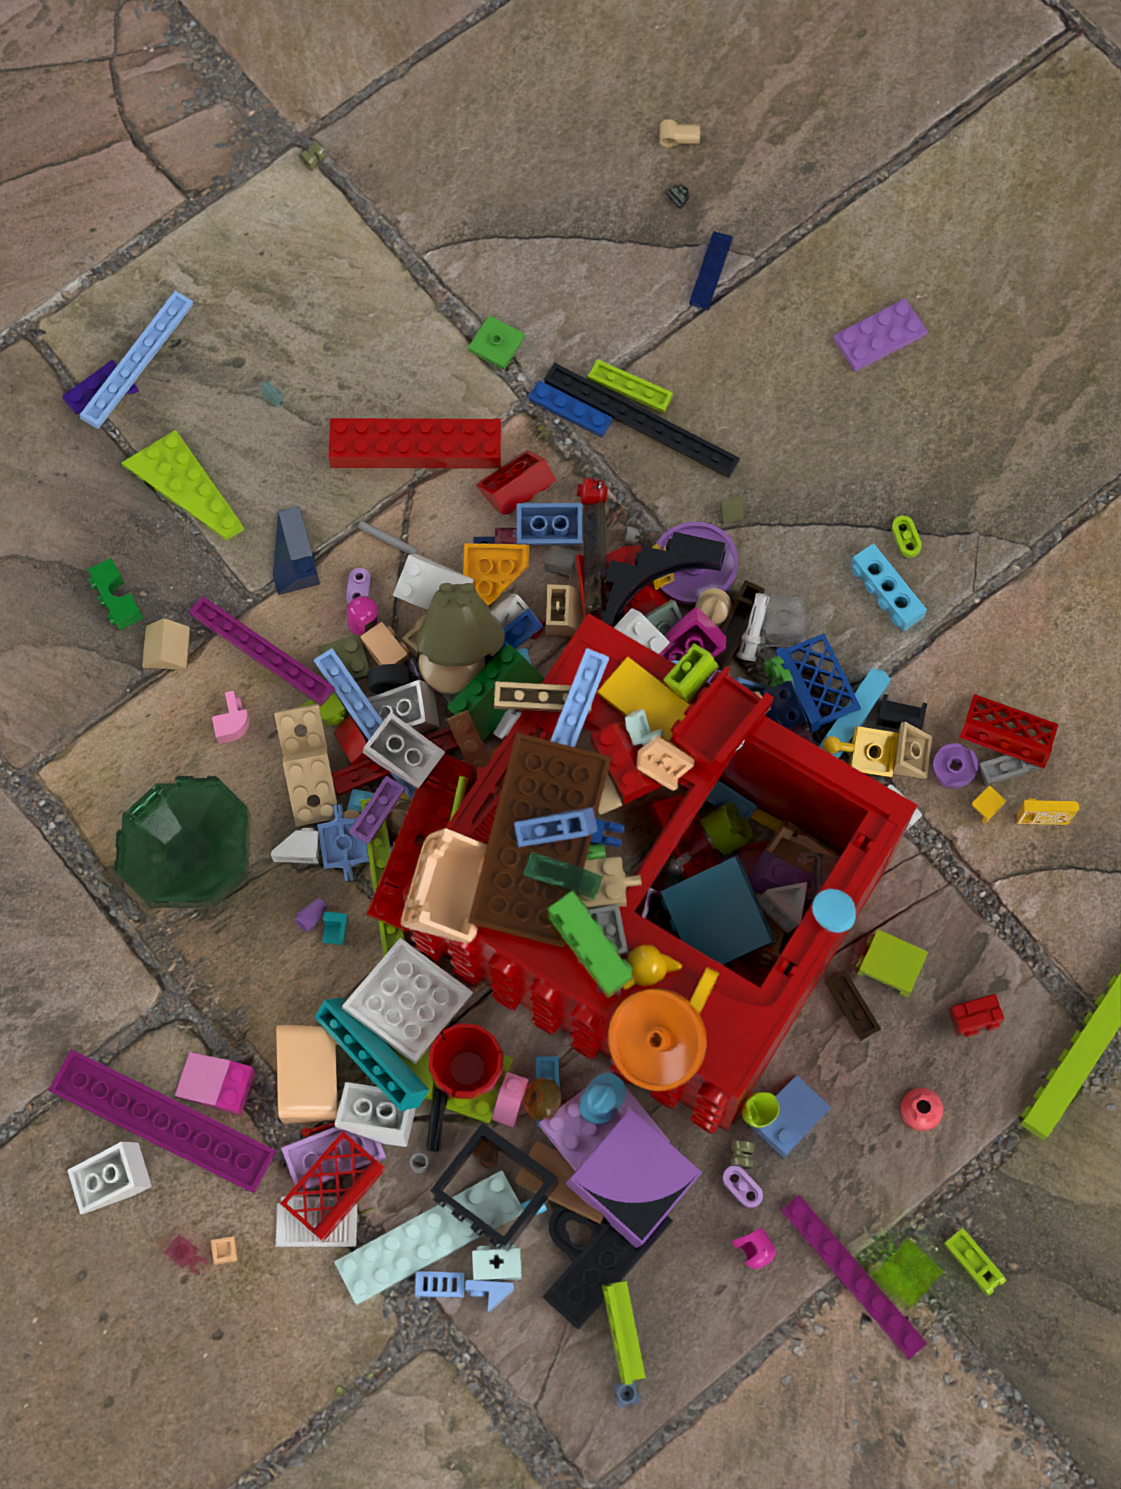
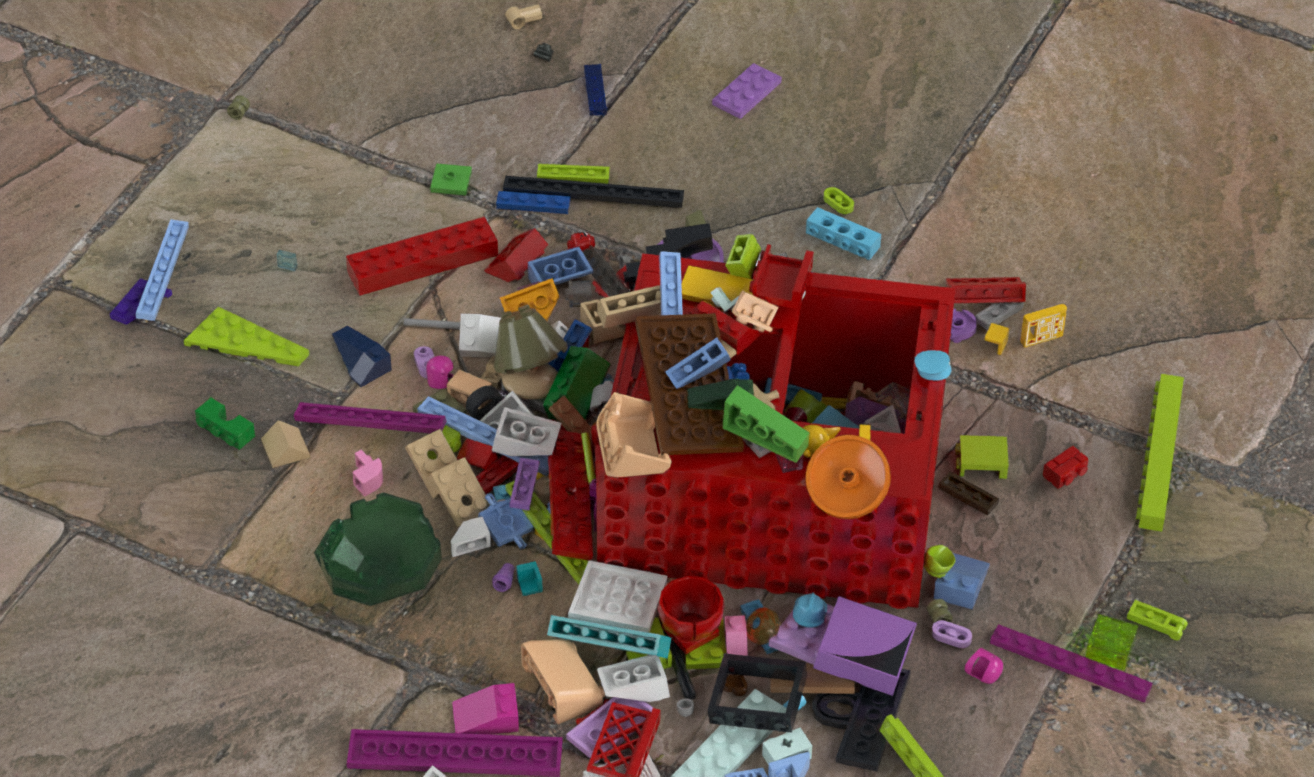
camera: 25 degrees left, 25 degrees down
(913, 1117) = (1058, 546): coral piece -> none

